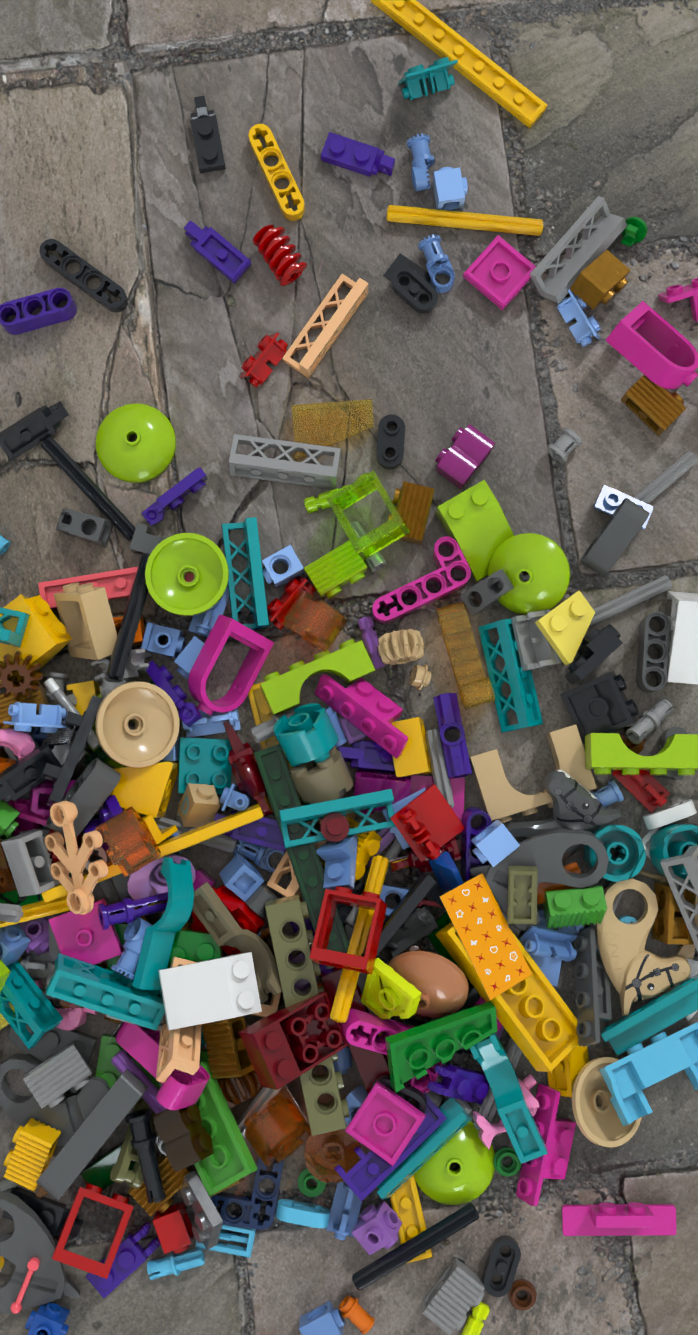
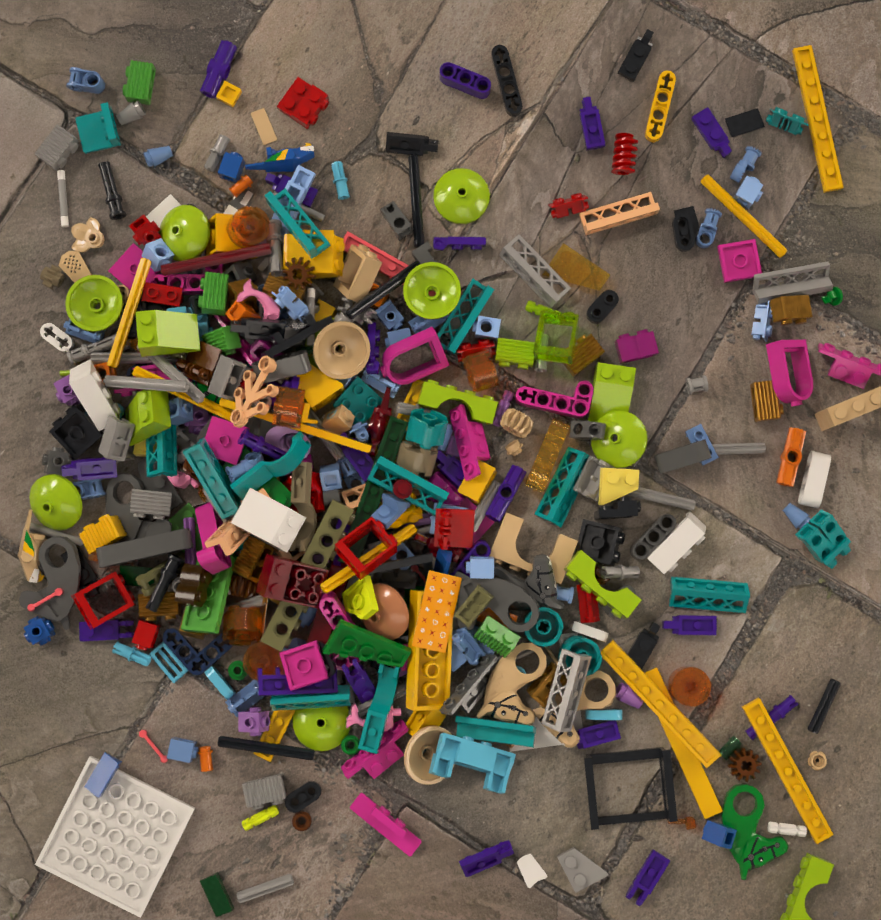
camera: 30 degrees right, 0 degrees up
(207, 1220) = (171, 639): flat silver plate -> none
(383, 119) = (744, 122): none -> black sticker

